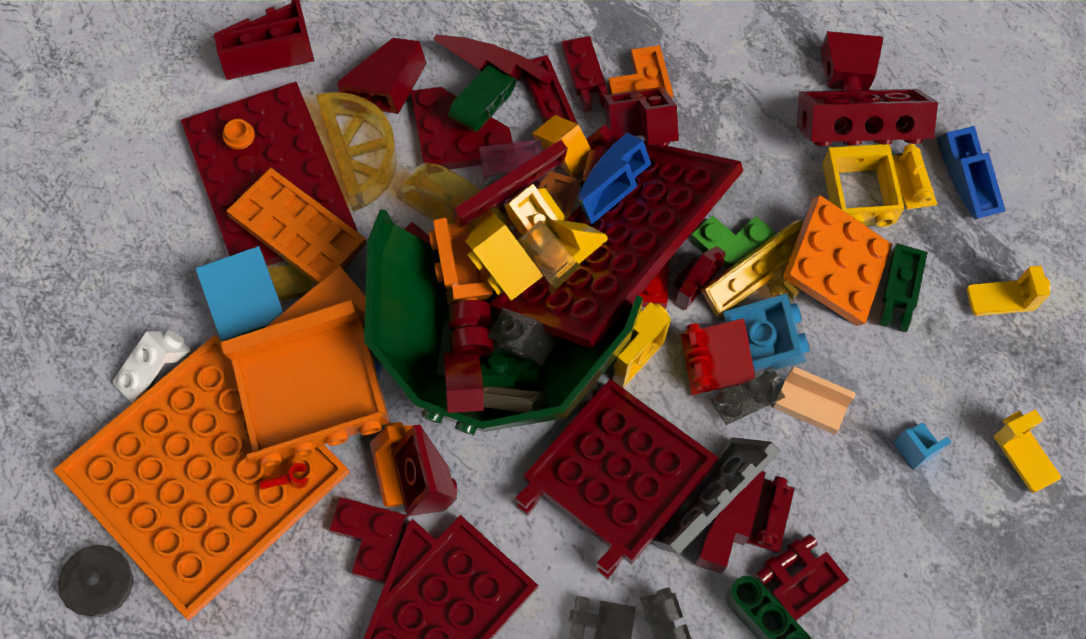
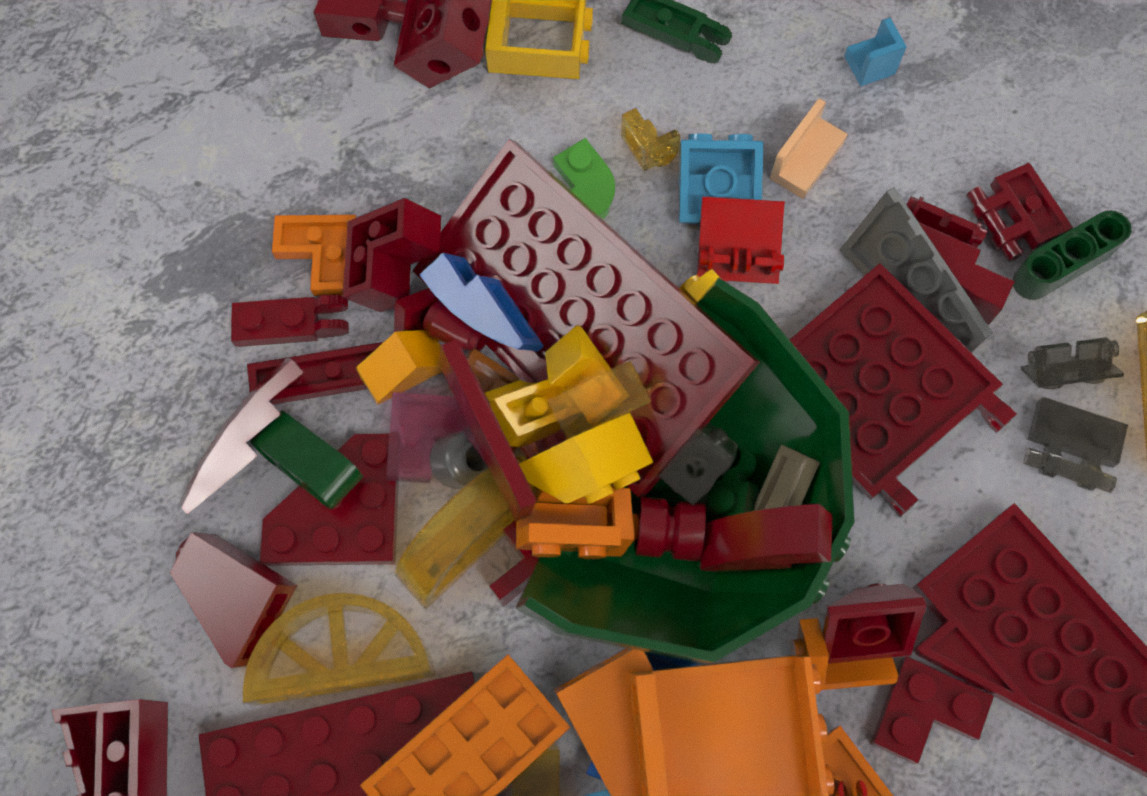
camera: 75 degrees left, 5 degrees up
(697, 275) = (629, 224): dark red plate -> none
(748, 397) = (800, 228): clear smoke hinge -> none
(751, 271) = (626, 172): yellow tile -> none
(838, 260) = (637, 79): orange plate -> none

